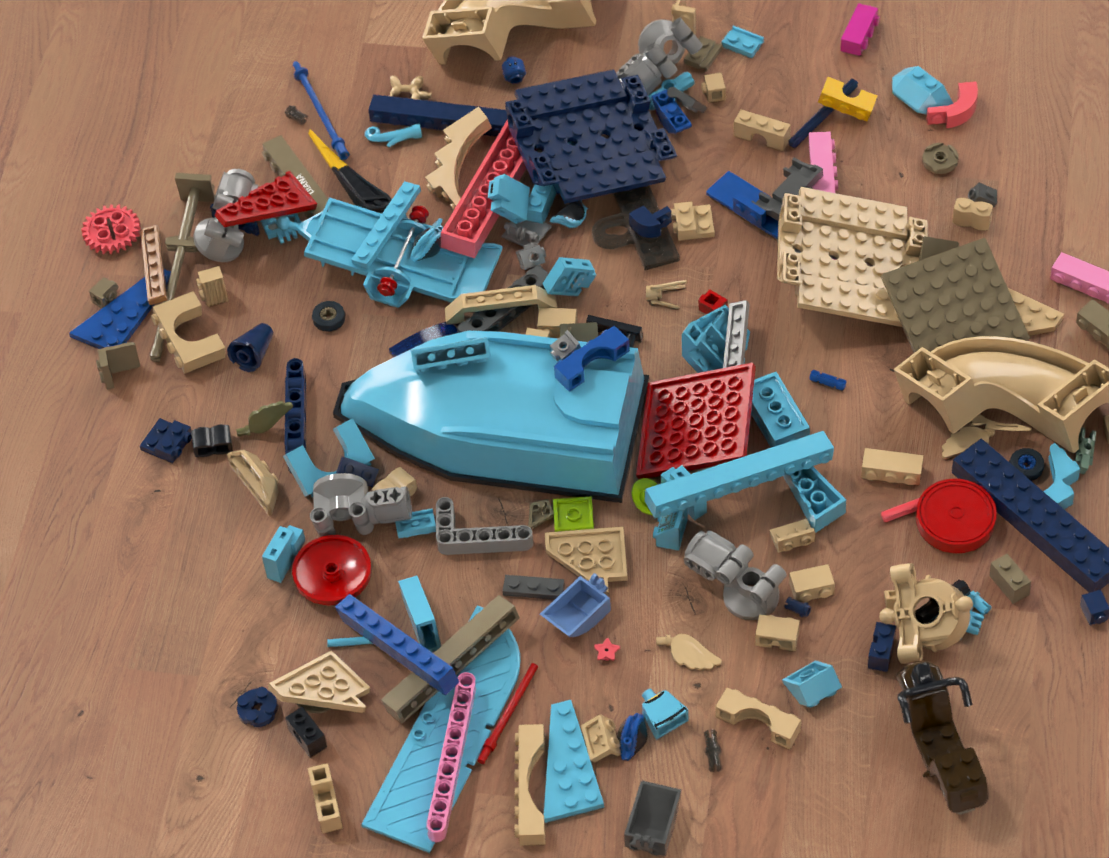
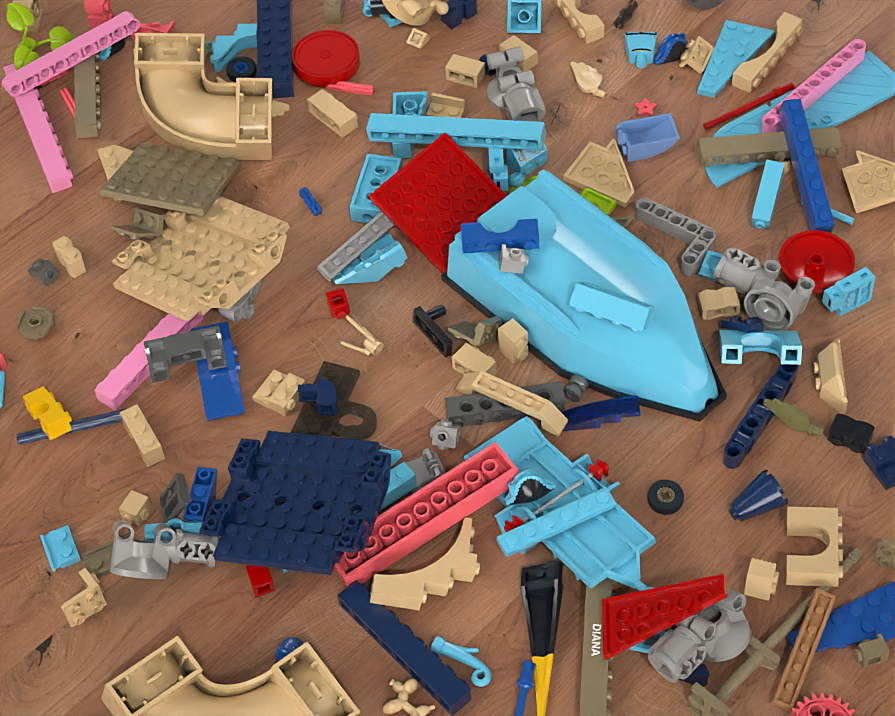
camera: 145 degrees left, 0 degrees up
(509, 198) = (425, 474): medium azure piece -> none
(532, 587) = (663, 177): dark grey plate -> none
(569, 276) = (433, 382): medium azure piece -> none

